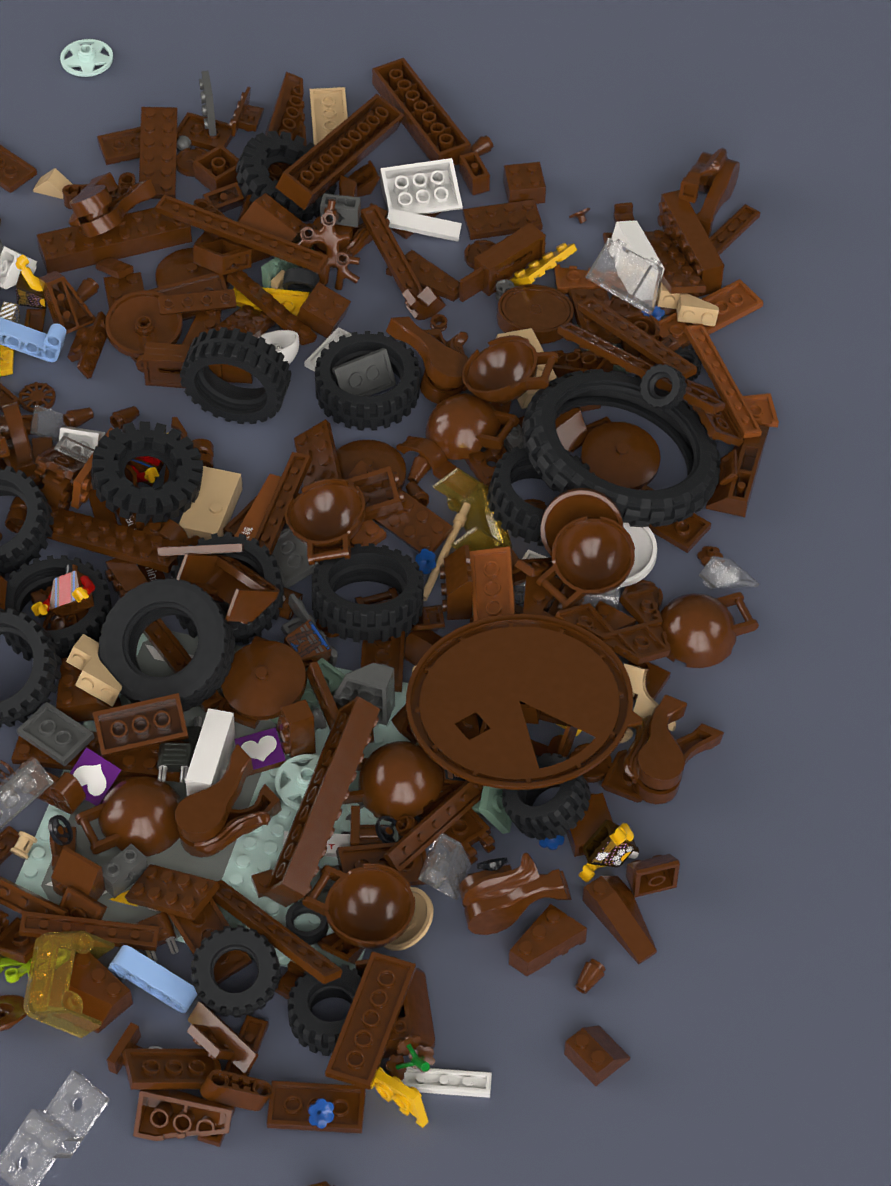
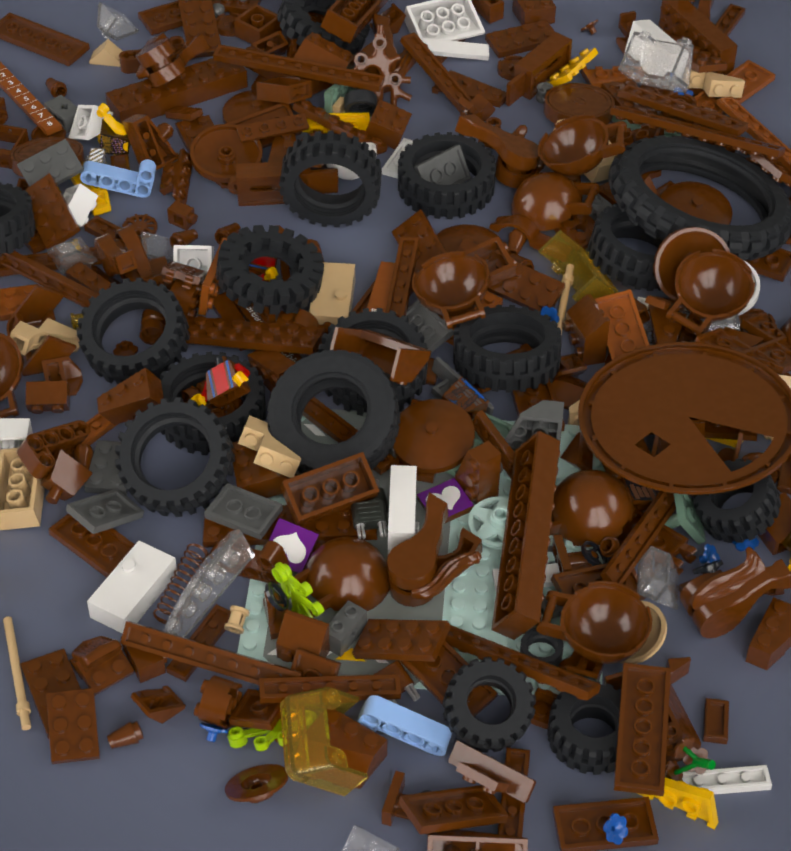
camera: 10 degrees left, 5 degrees down
(69, 146) = (114, 23): none -> clear slope
(74, 449) = (192, 261): clear slope -> none
(82, 389) = (181, 215): none -> reddish brown brick
(84, 829) = (289, 585): none -> lime plant
(204, 549) = (351, 323): tile -> none
(236, 1090) = (523, 820): reddish brown beam -> none
(260, 881) = (484, 619): reddish brown plate -> none
(347, 207) = (393, 33): dark grey brick -> none
(435, 962) = (679, 667): none -> reddish brown slope
(458, 1020) = (716, 721): none -> reddish brown tile
(508, 849) = (709, 555): none -> blue plant
(648, 387) = (726, 154): black tyre -> none

